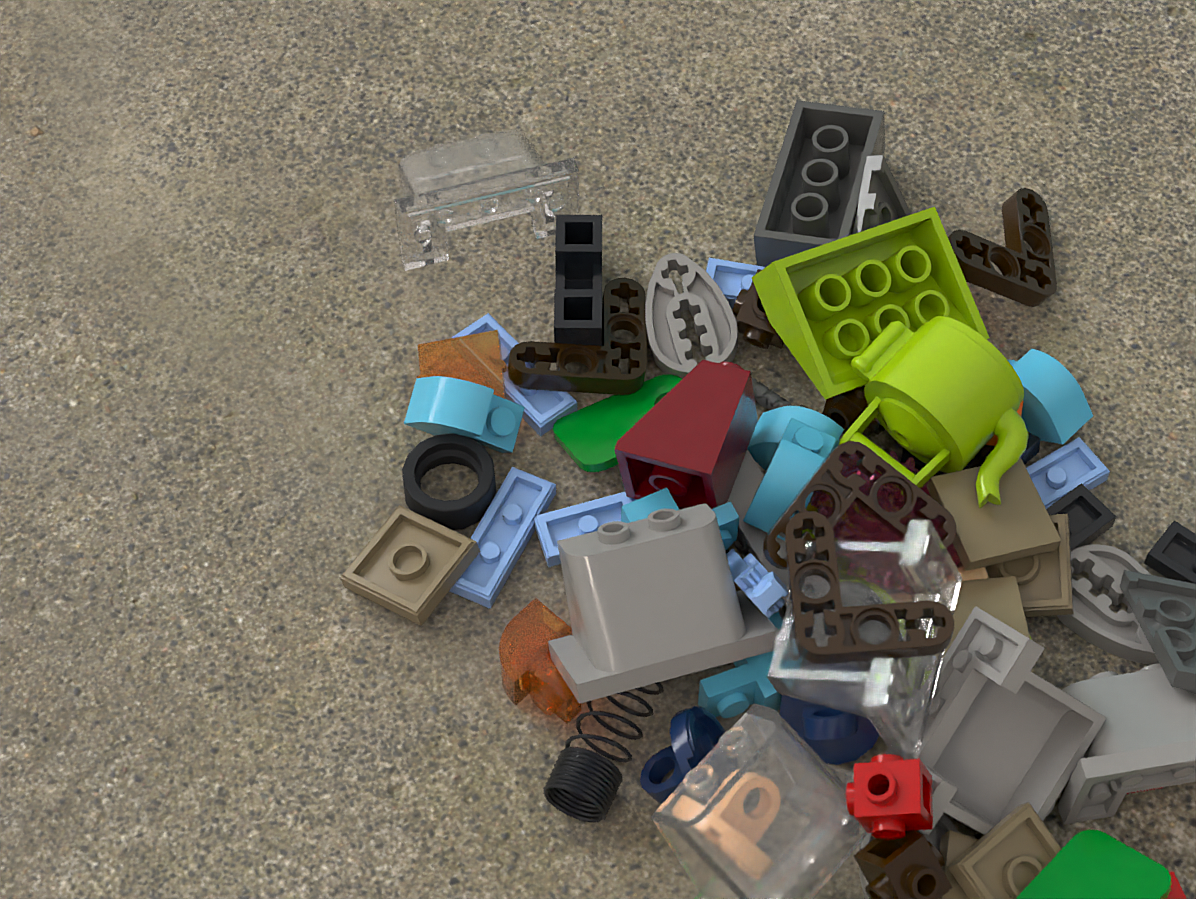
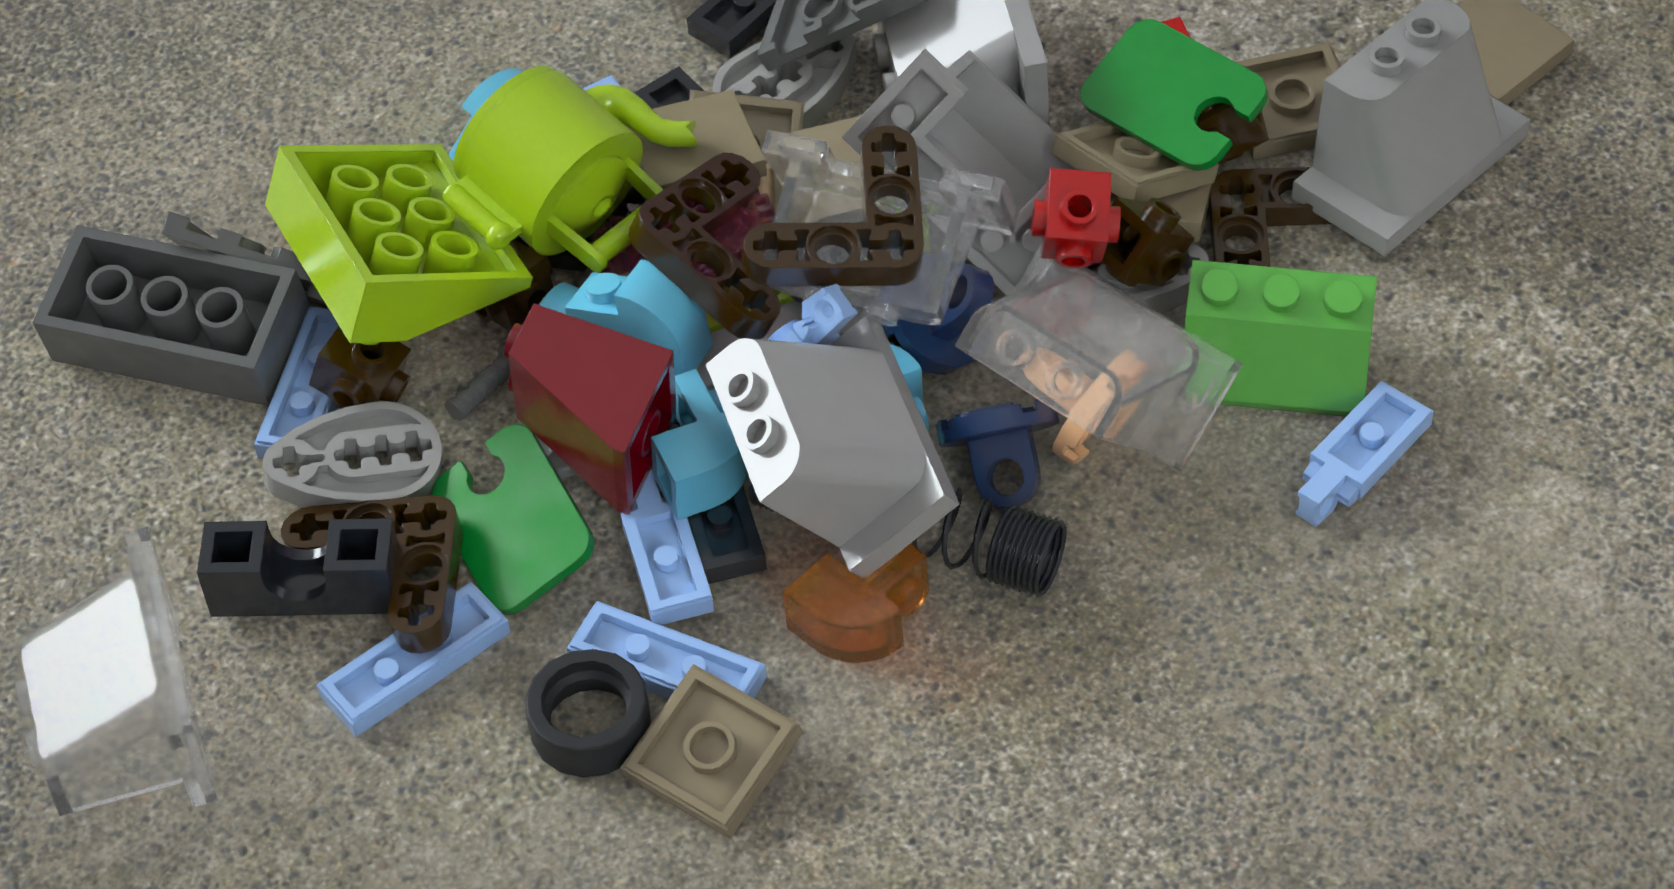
camera: 85 degrees left, 5 degrees down
(466, 409) = (491, 693): medium azure brick -> none
(467, 358) = (414, 710): clear orange piece -> none
(1026, 275) = (282, 125): dark brown beam -> none

